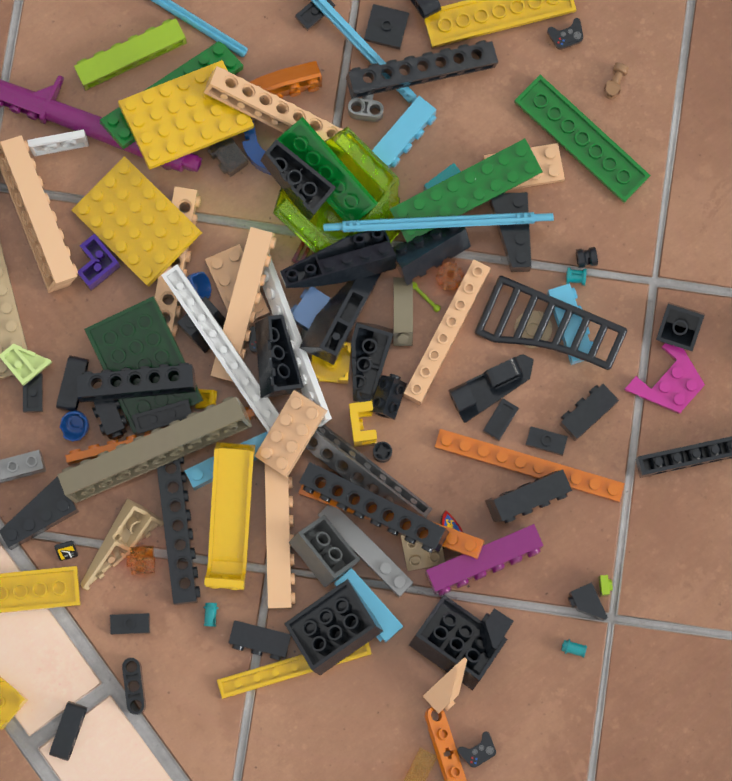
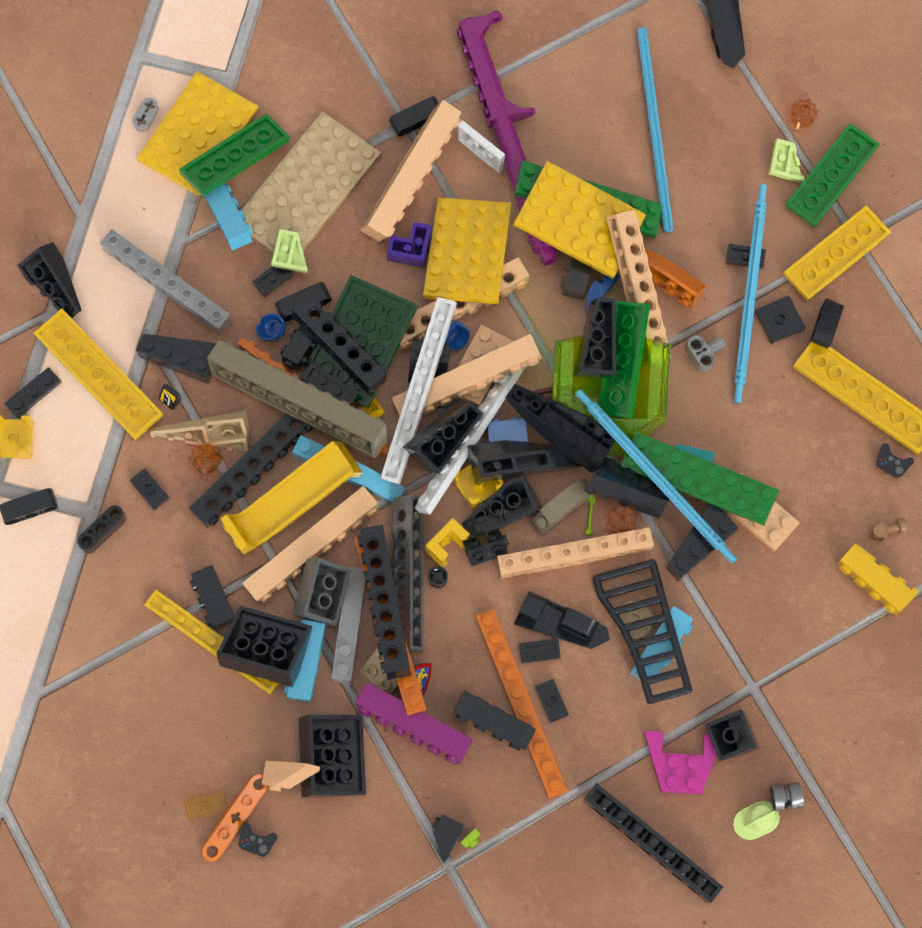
camera: 50 degrees right, 5 degrees down
(130, 53) = (595, 147): lime brick -> none
(210, 614) = (204, 544): teal pin -> none
(290, 433) = (393, 492): light nougat plate -> none
(360, 88) = (772, 381): black brick -> none
(405, 131) = (706, 397): medium azure brick -> none
(494, 630) = (363, 777): black slope -> none
(573, 648) = (399, 854): teal pin -> none
(576, 276) = (704, 620): teal bush -> none
(582, 138) = (819, 539): green plate -> none
(586, 257) = (726, 617): black wheel -> none
(588, 411) = (602, 715): black brick -> none
(647, 121) = (876, 579): none -> yellow wedge

